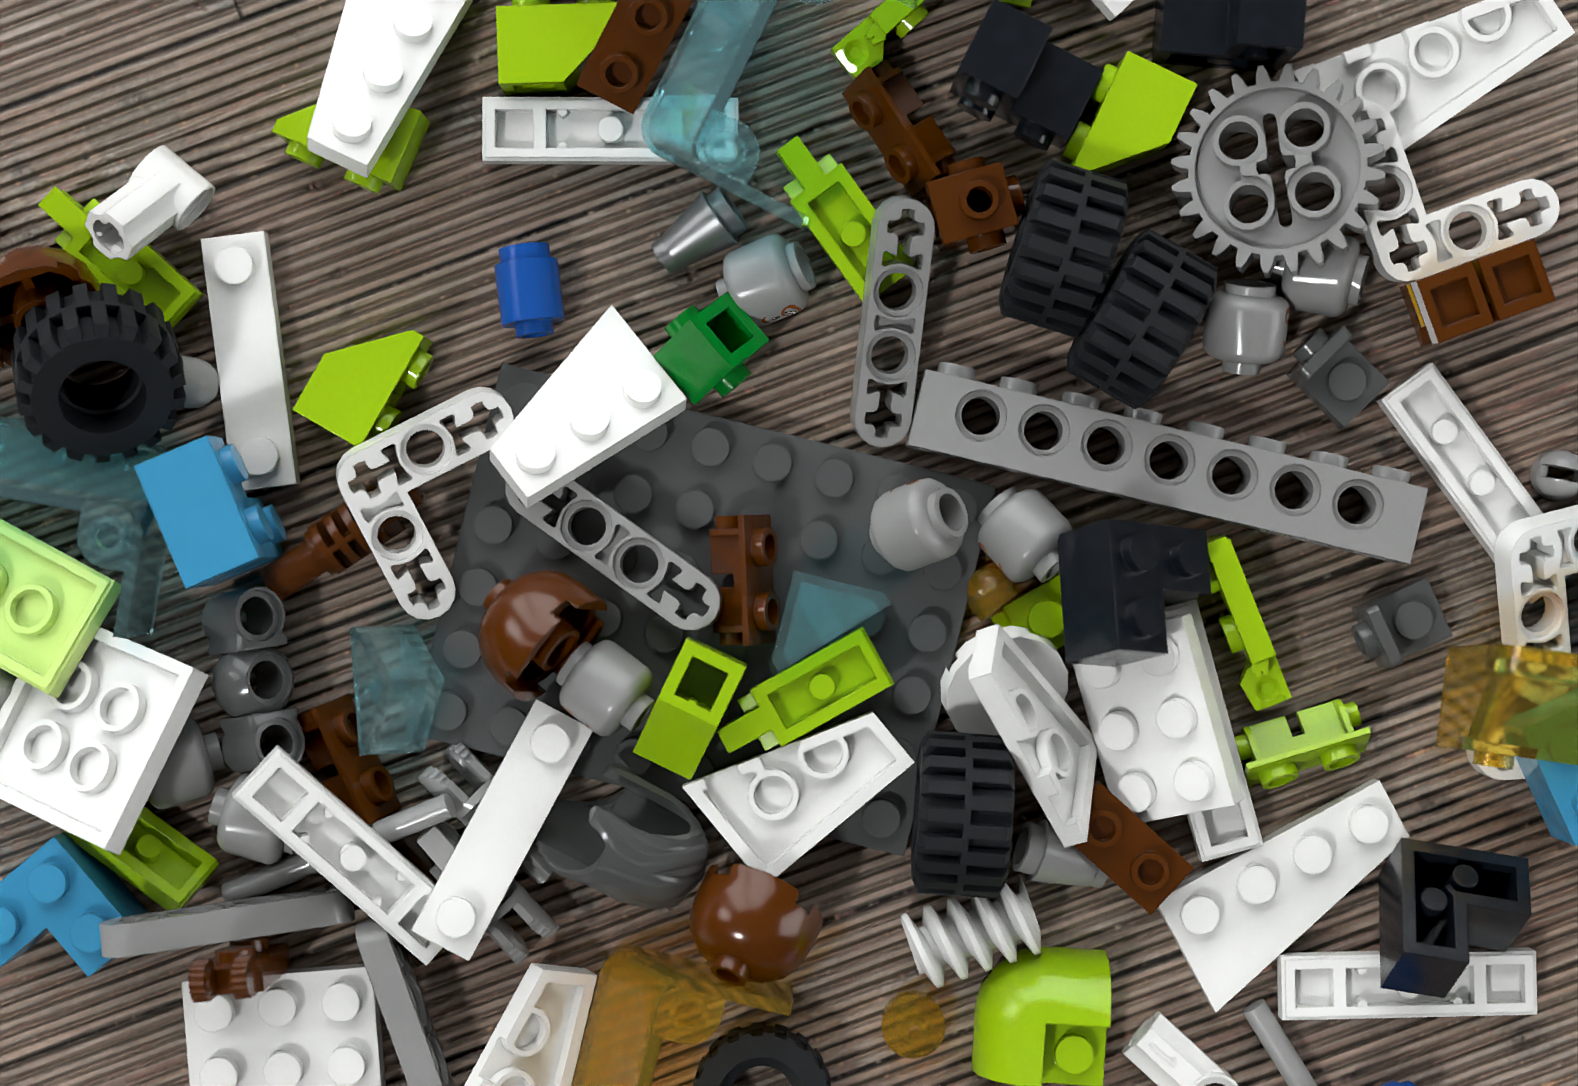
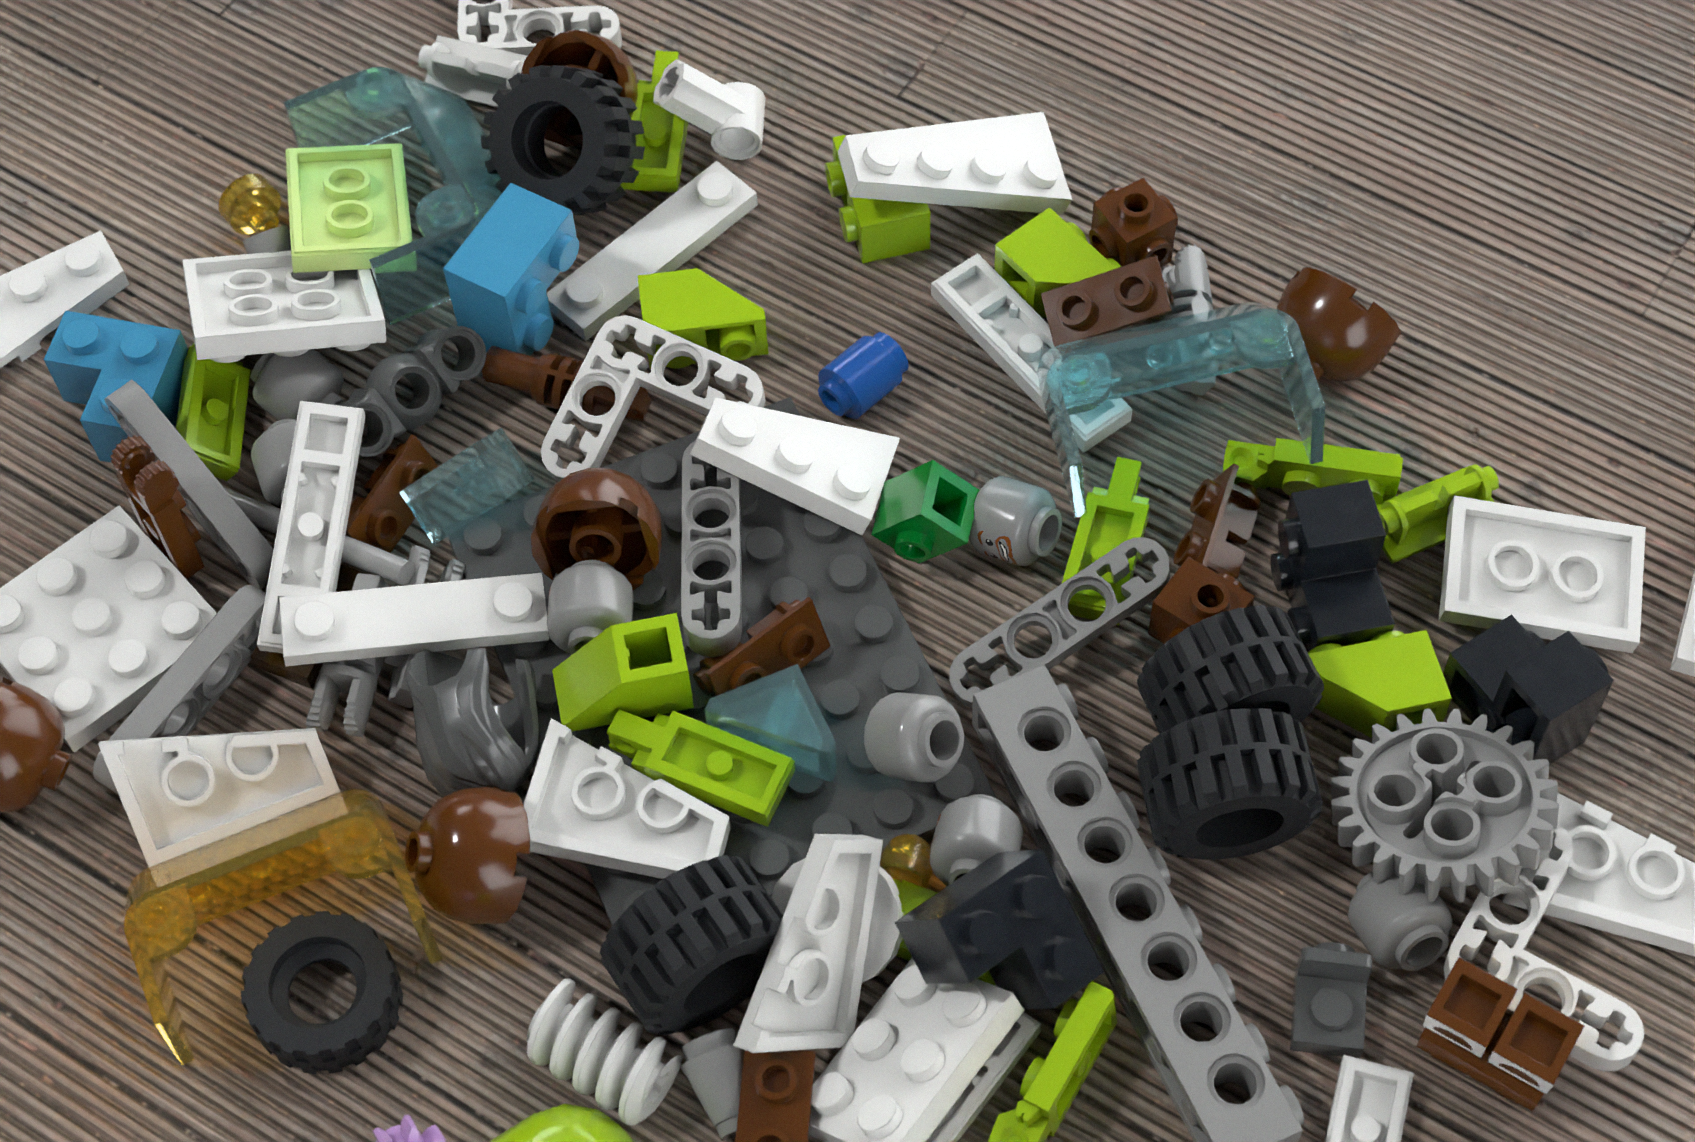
camera: 55 degrees right, 30 degrees down
(201, 382) = (605, 221): light grey hinge -> none
(700, 231) = (1009, 454): flat silver cone -> none
(910, 1010) = (478, 1076): clear yellow tile -> none
(1246, 326) = (1302, 892): light grey head -> none

